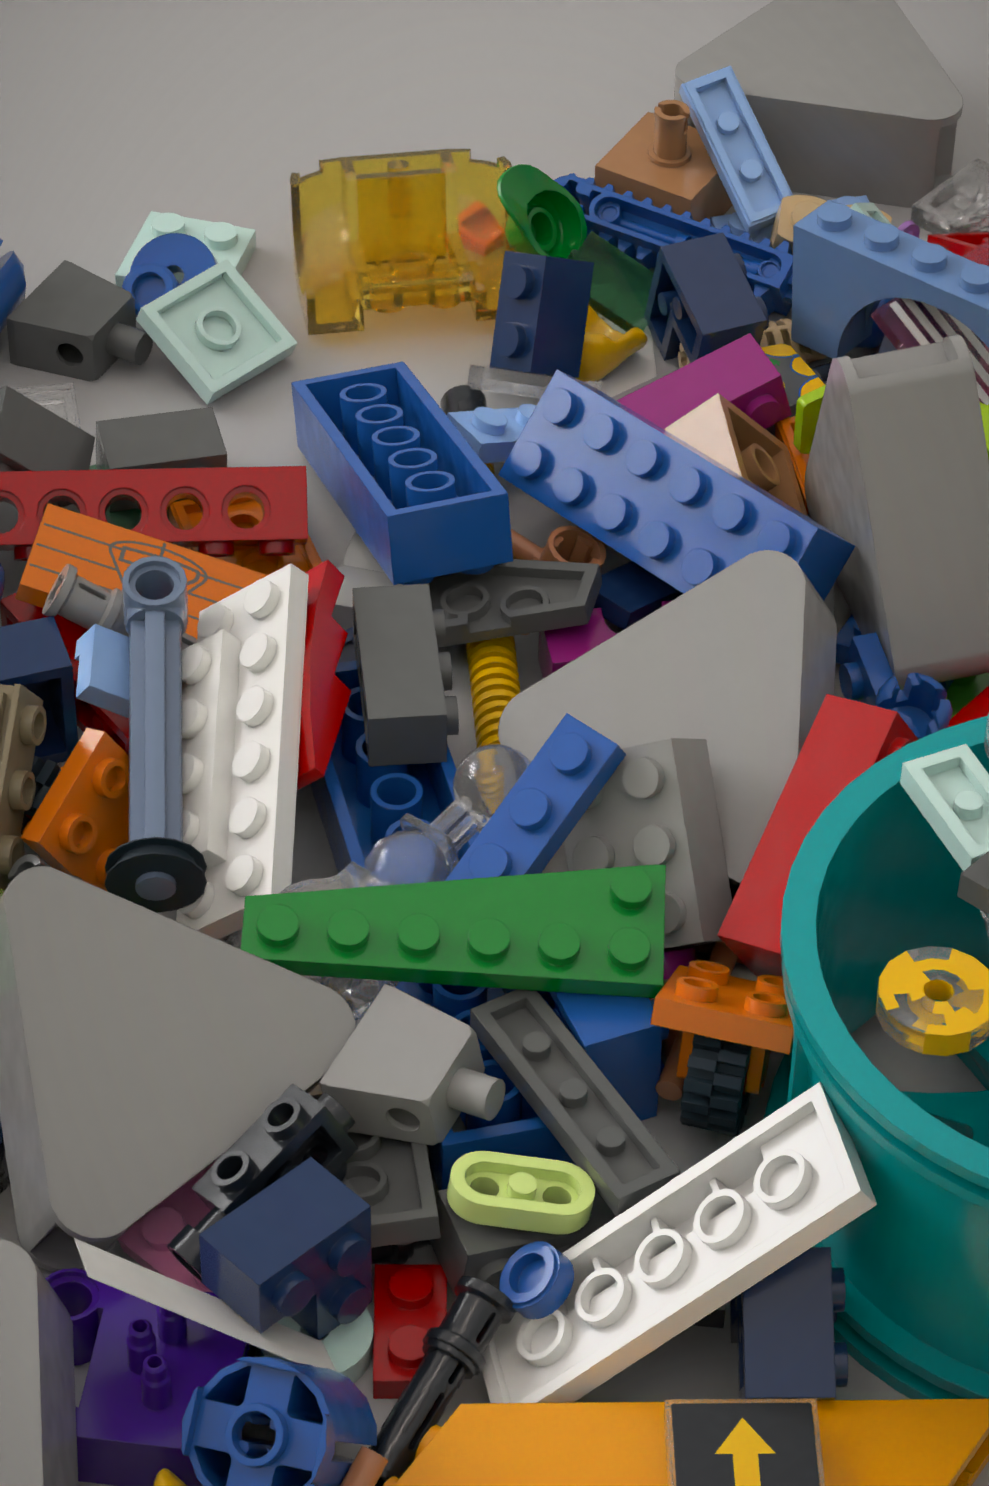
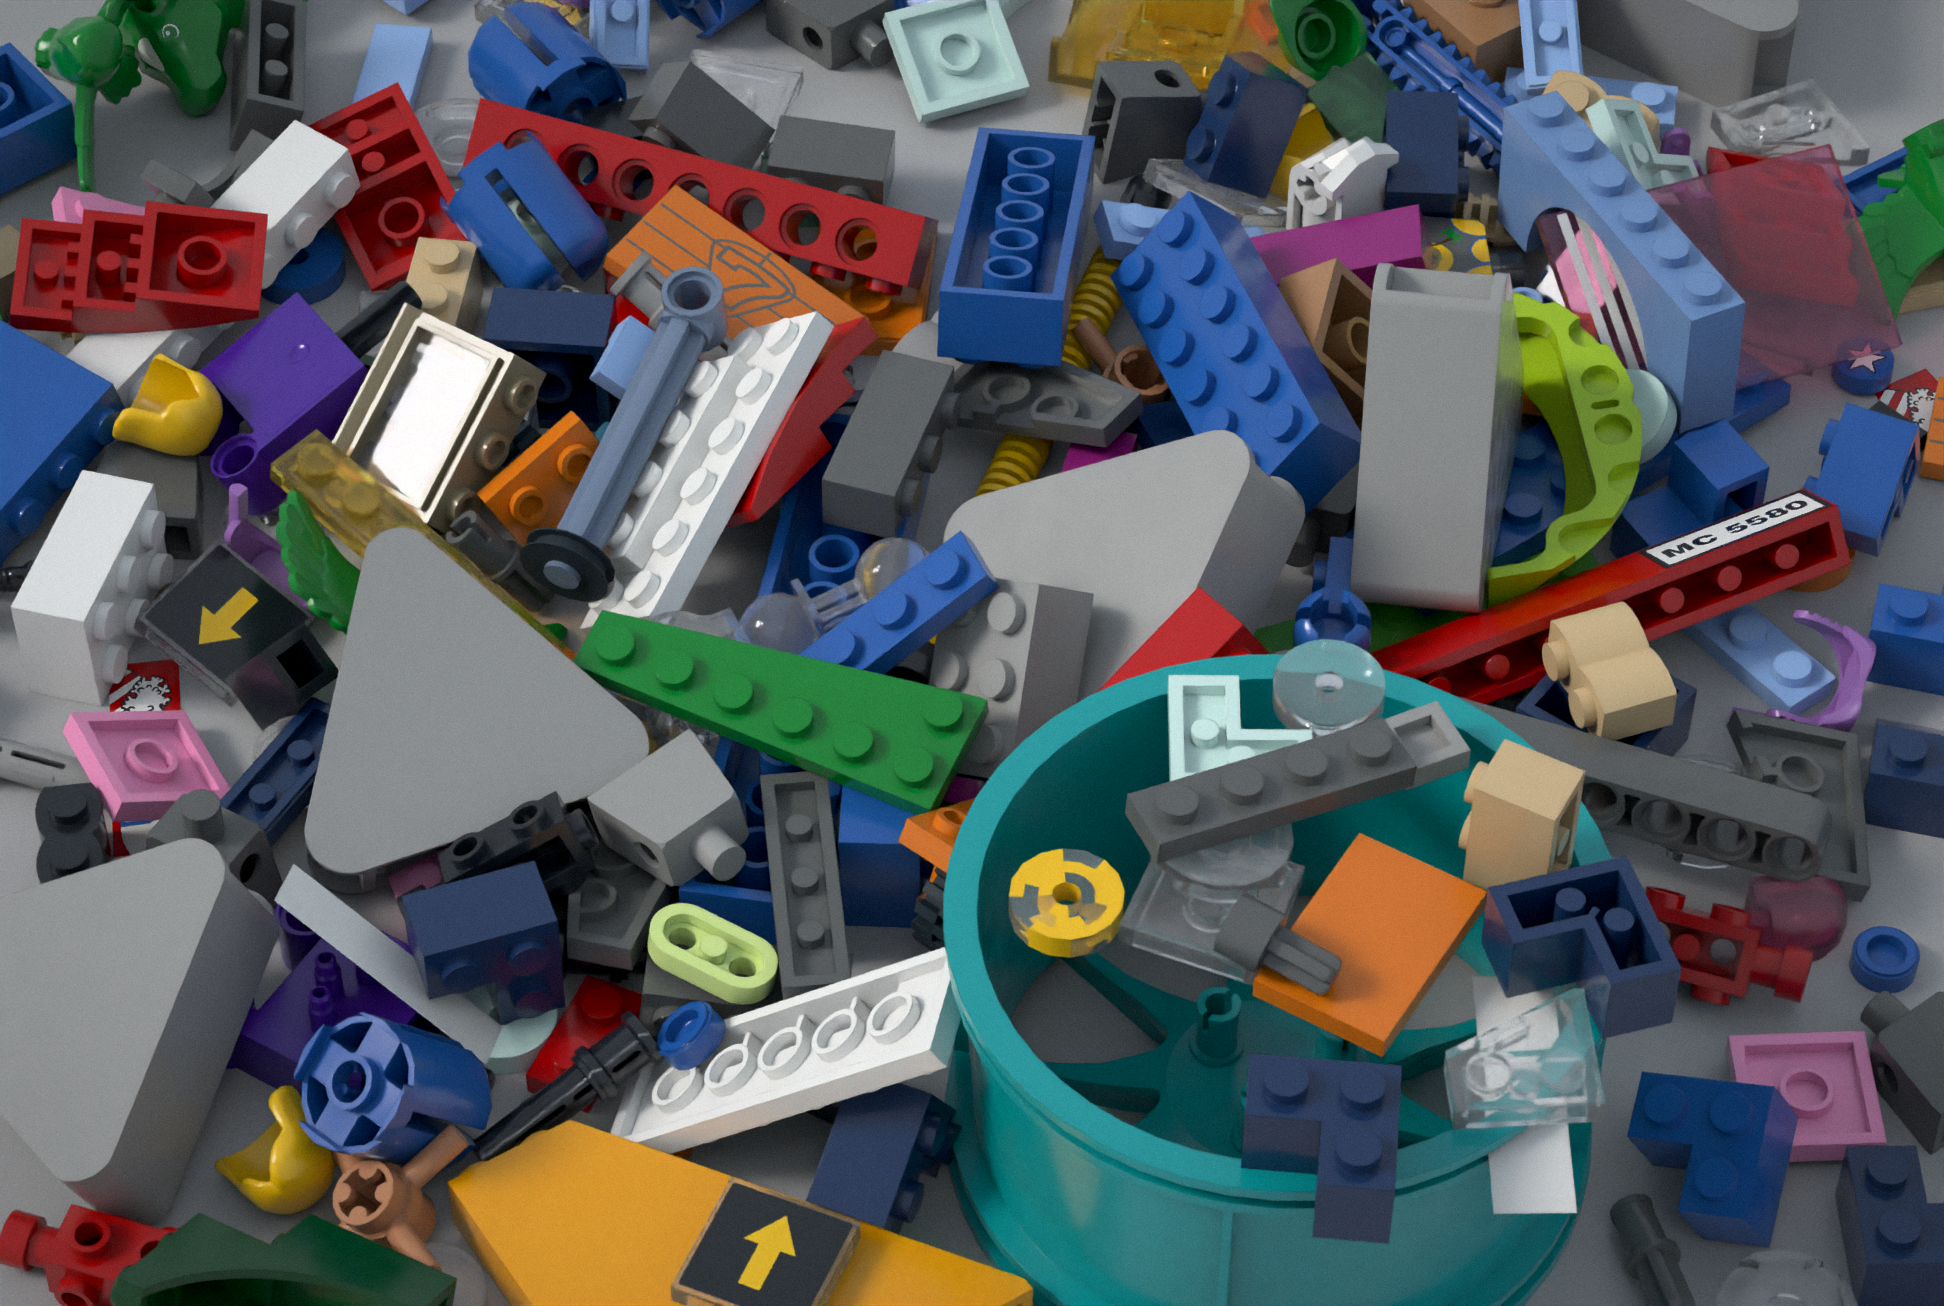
camera: 25 degrees right, 5 degrees up
(429, 329) = (1140, 114): none -> dark grey torso
(652, 341) = (1339, 182): none -> white piece

